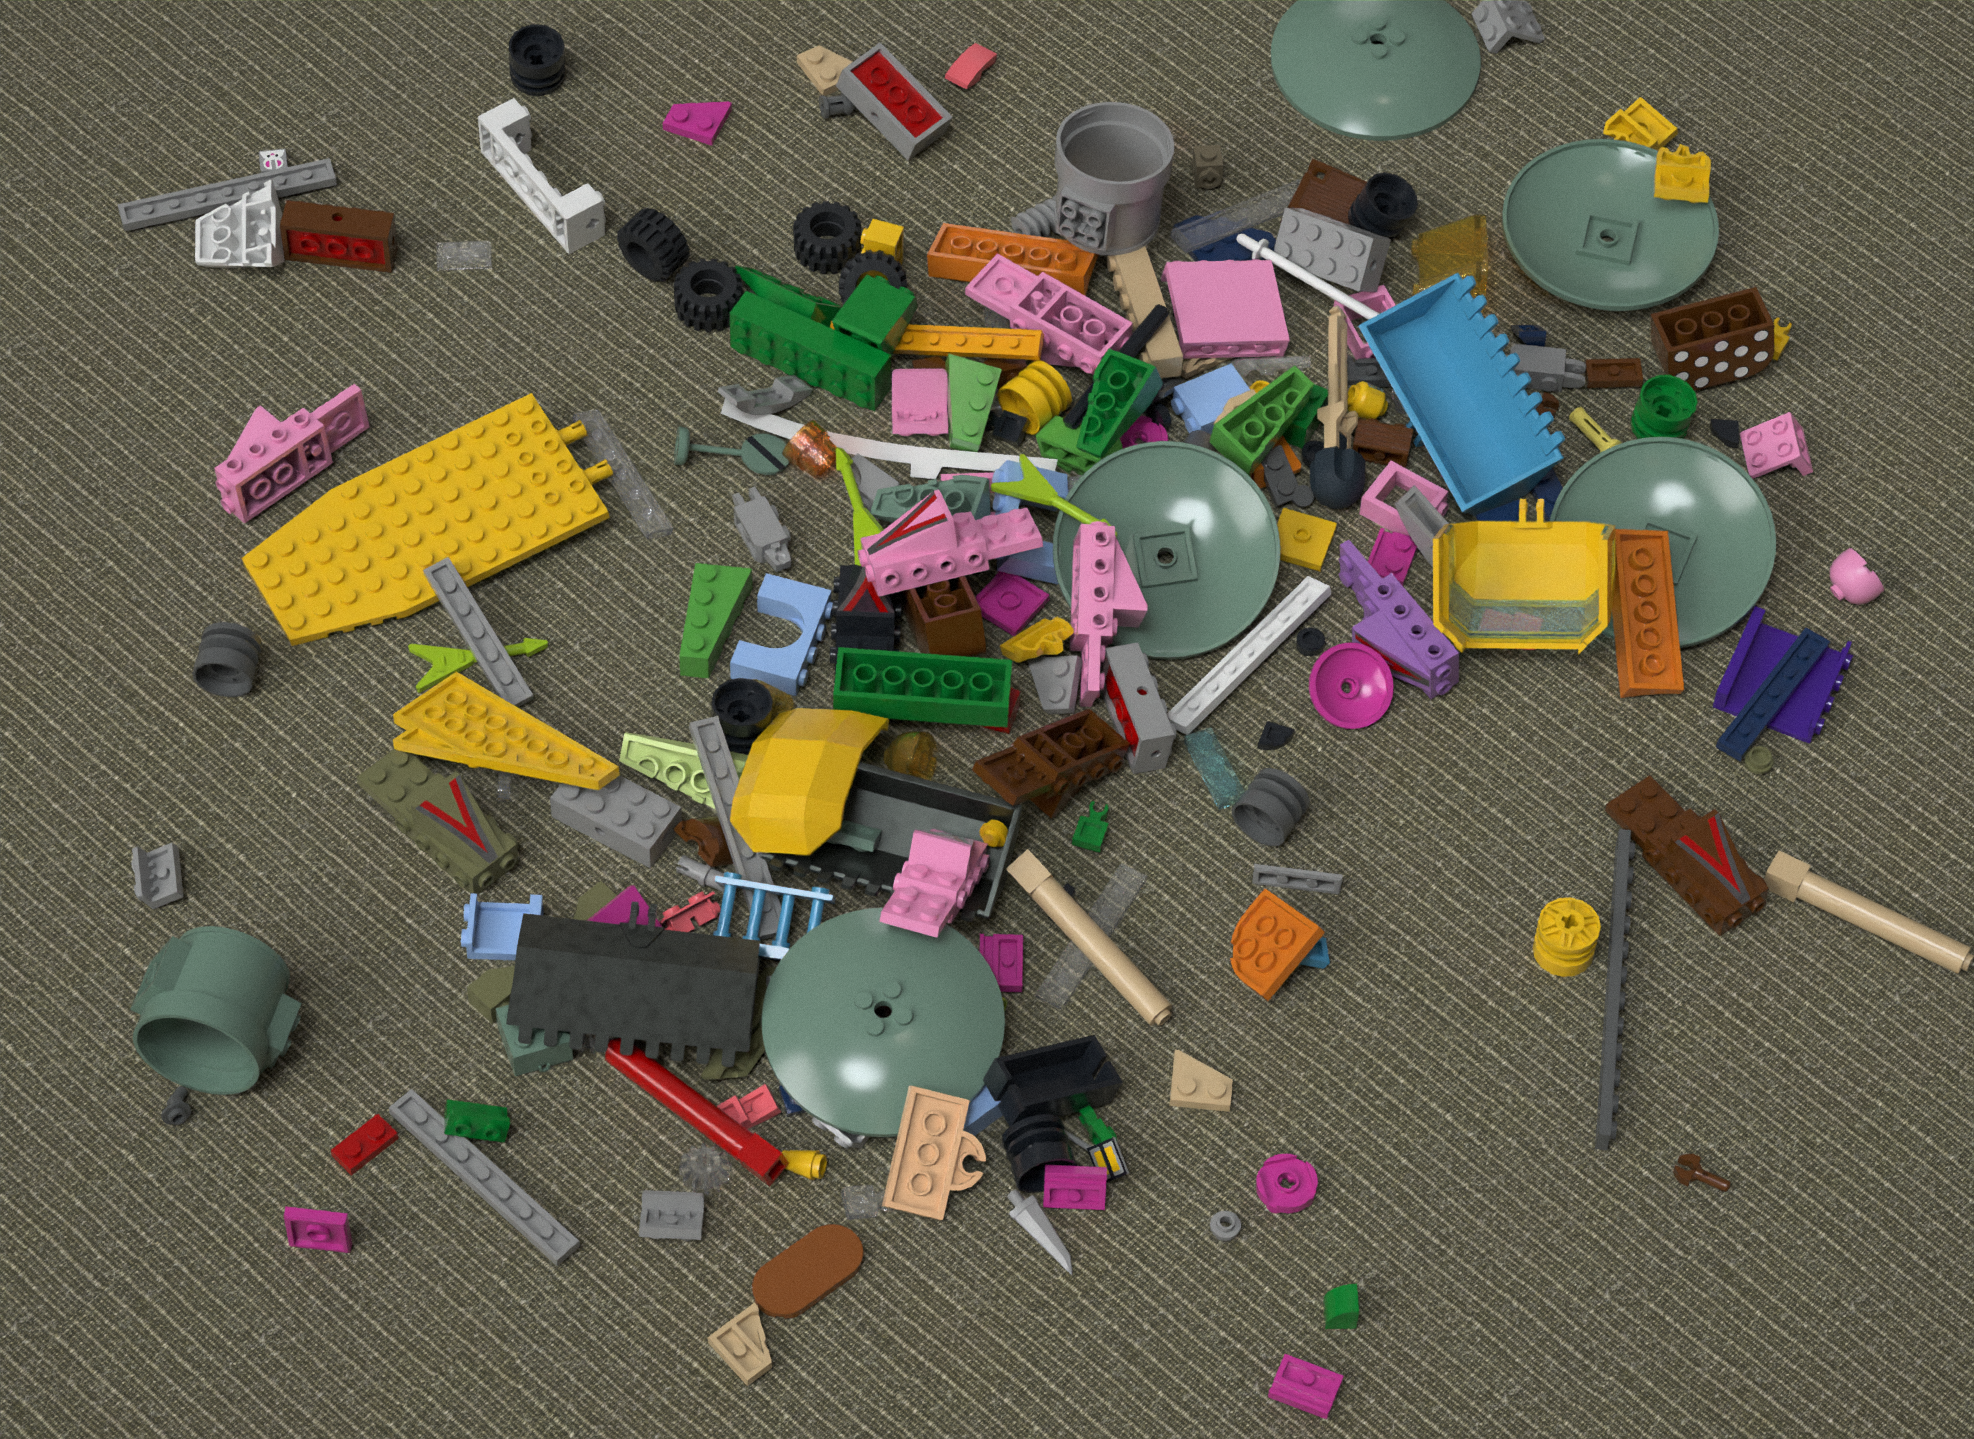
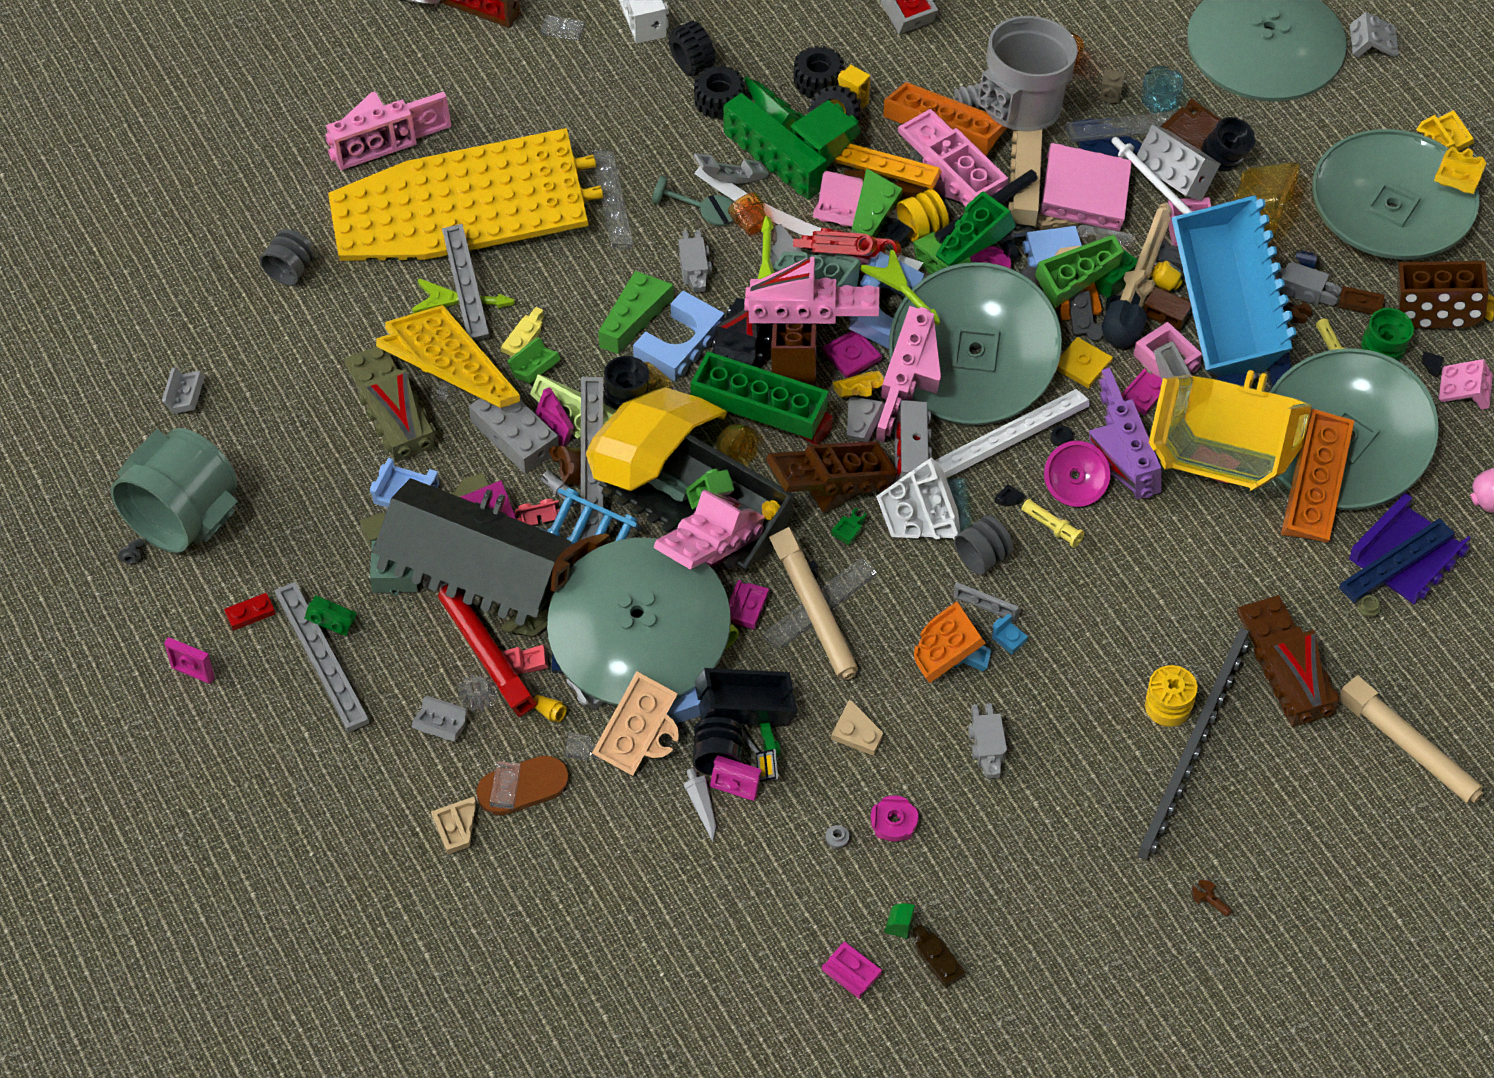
camera: 20 degrees right, 0 degrees up
(577, 684) = (524, 332): none -> light yellow hinge
(605, 717) = (532, 360): none -> bright green bracket
(665, 781) = (554, 416): none -> dark pink wing
(769, 959) = (572, 555): none -> reddish brown slope
(790, 1276) = (505, 785): none -> clear plate
(899, 826) = (713, 481): none -> bright green brick
(940, 463) = (850, 244): none -> plate
(1175, 777) = (920, 504): none -> white wedge
(1272, 156) = (1162, 89): none -> clear light blue brick
(1339, 914) = (1008, 634): none -> dark azure bracket
(1354, 760) = (1060, 527): none -> light yellow pin
(1365, 1053) = (988, 739): none -> light grey hinge
(1402, 1340) = (937, 957): none -> dark brown hinge

